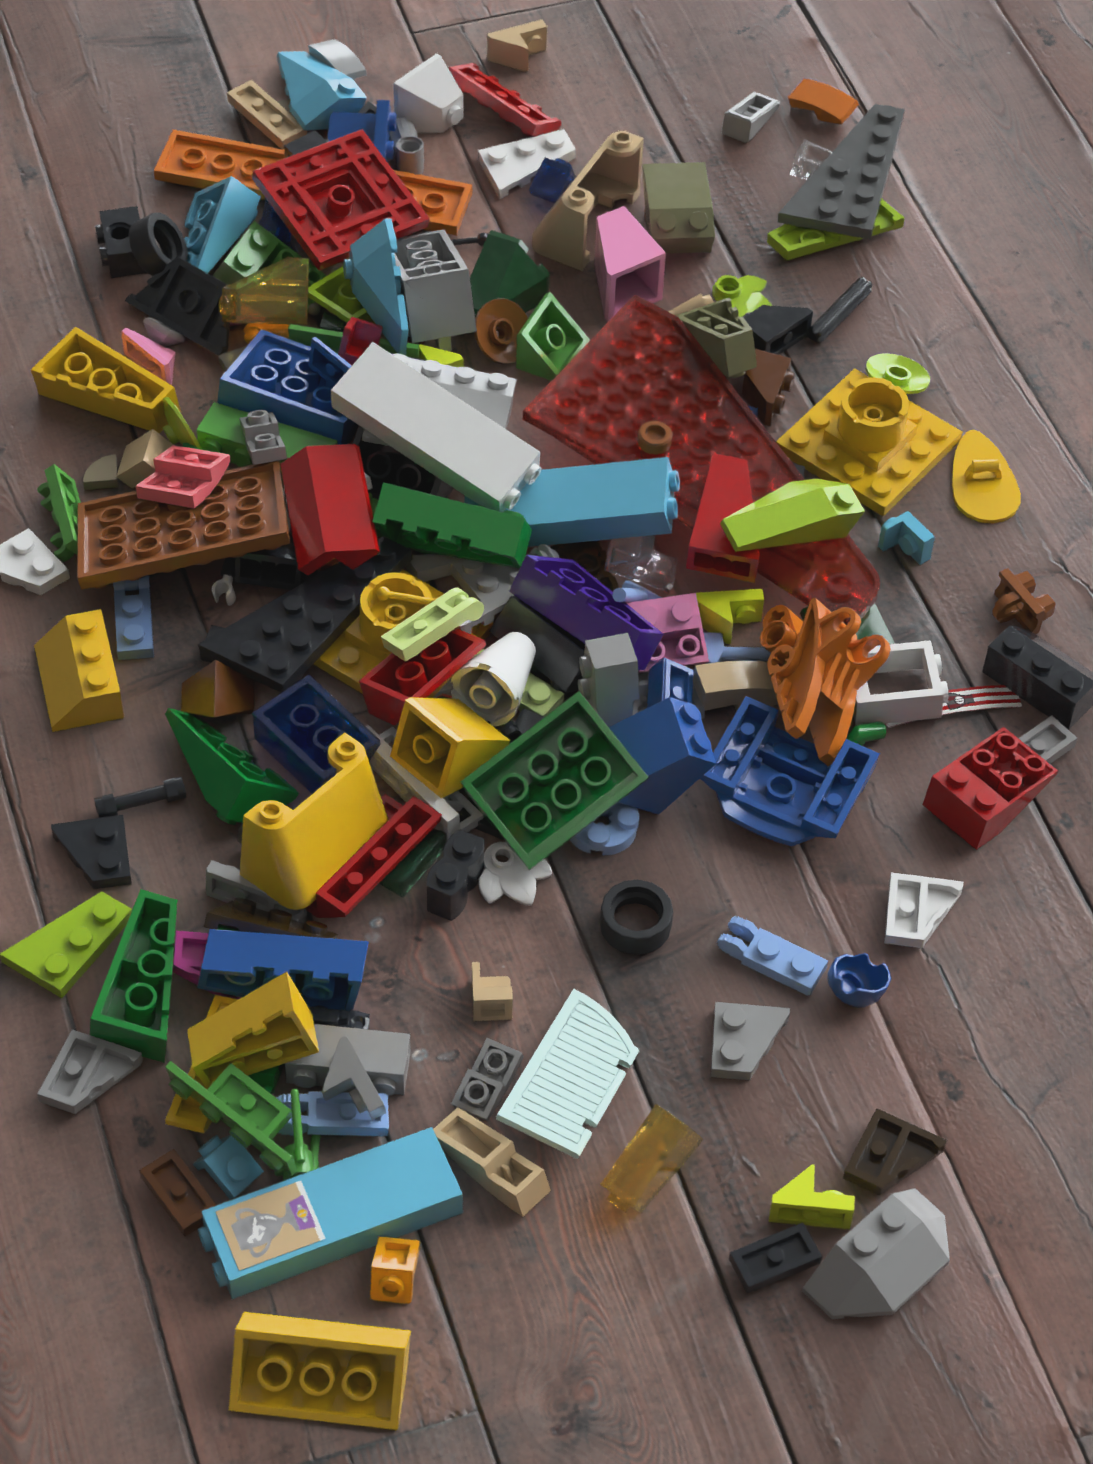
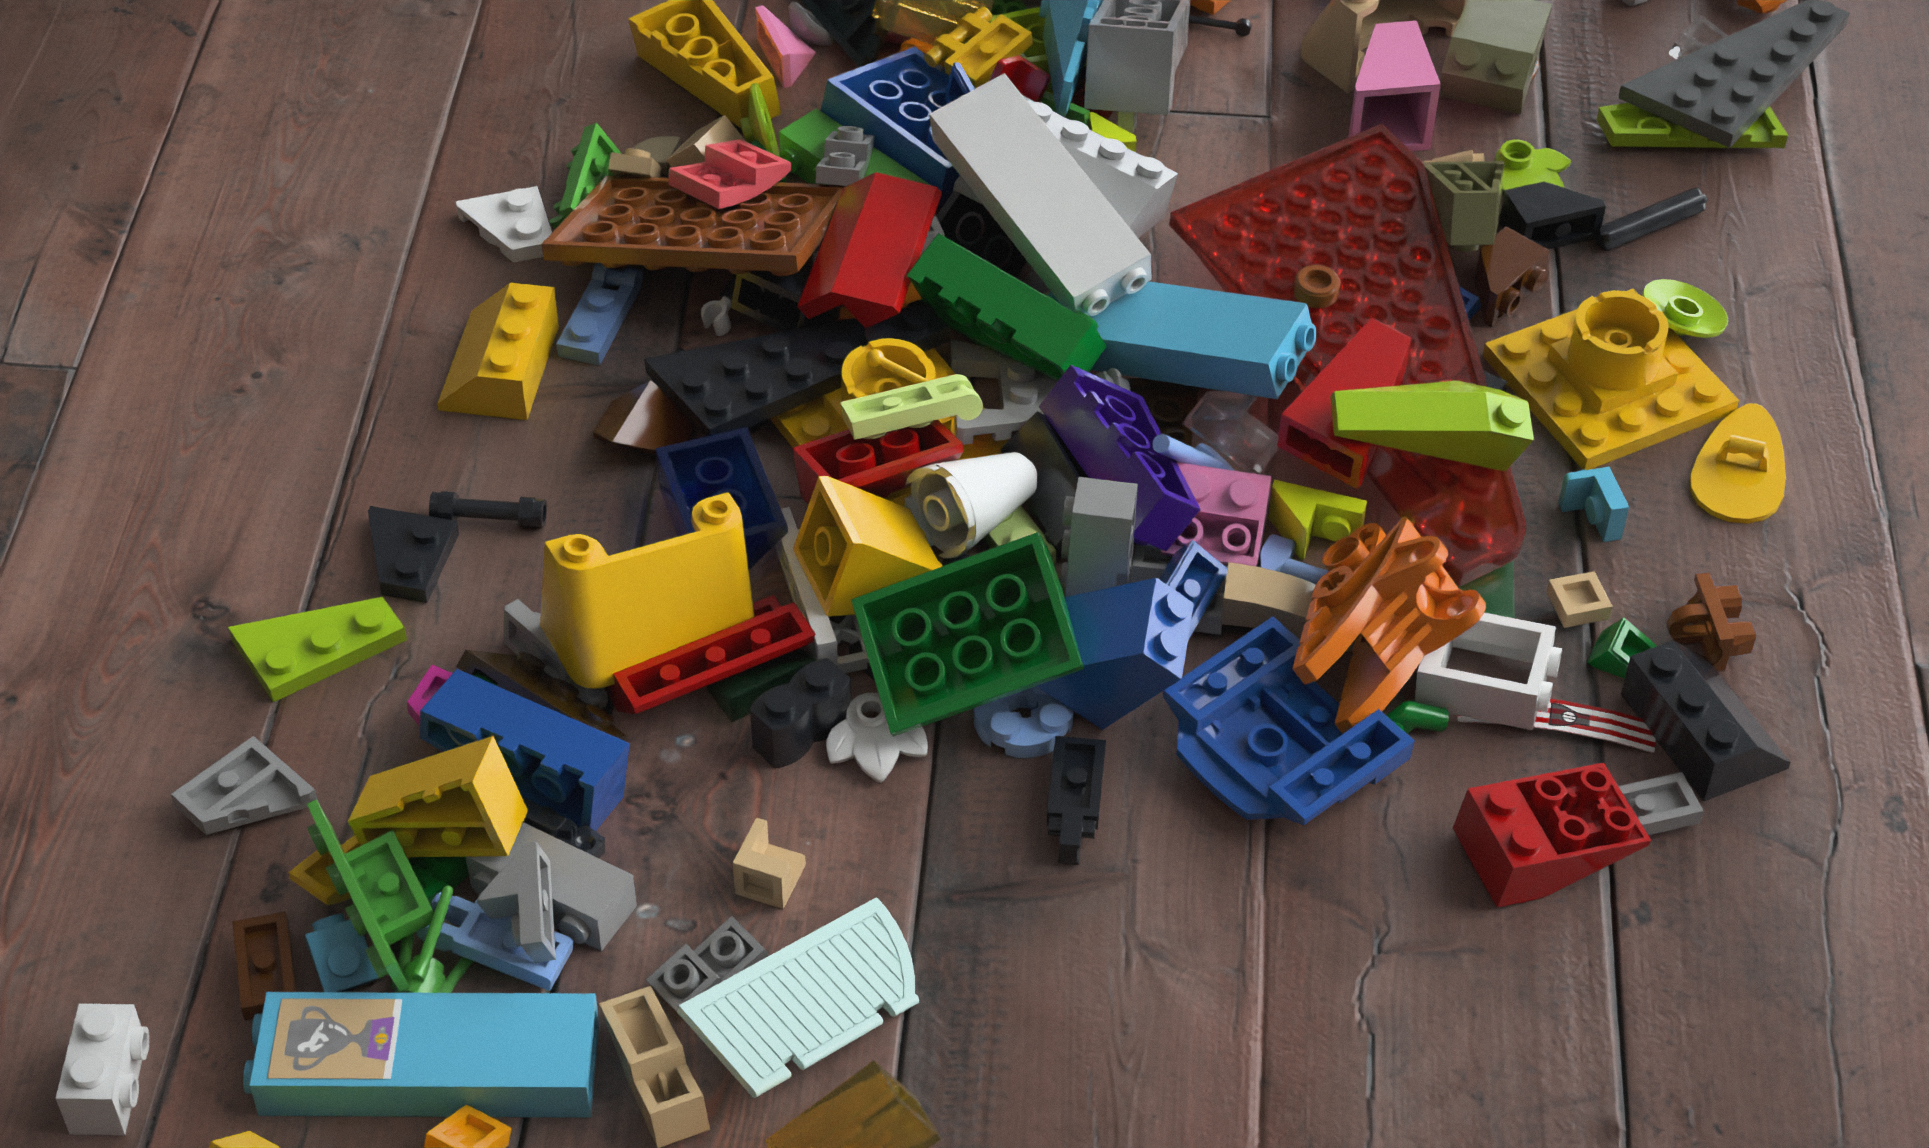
camera: 25 degrees right, 5 degrees down
(96, 488) = (634, 164): none -> tan plate
(110, 1308) = (102, 1069): none -> white brick
(138, 984) = (358, 707): green wedge -> none
(224, 771) = (595, 498): green wedge -> none
(325, 320) = (985, 46): none -> yellow plate
(507, 273) = (1231, 76): dark green slope -> none
(508, 320) = (1221, 122): dark orange dish -> none
(548, 340) = (1253, 143): bright green slope -> none
(642, 893) = (1000, 869): black tyre -> none
(669, 866) = (1075, 793): none -> black hinge
(743, 1037) = (1060, 1031): light grey wing -> none
(773, 956) = (1154, 947): light blue hinge -> none
(858, 980) = (1243, 1010): blue hair -> none
(917, 907) = (1375, 950): white wing -> none
(928, 613) = (1579, 599): none -> tan plate
(969, 640) = (1616, 646): none -> green slope

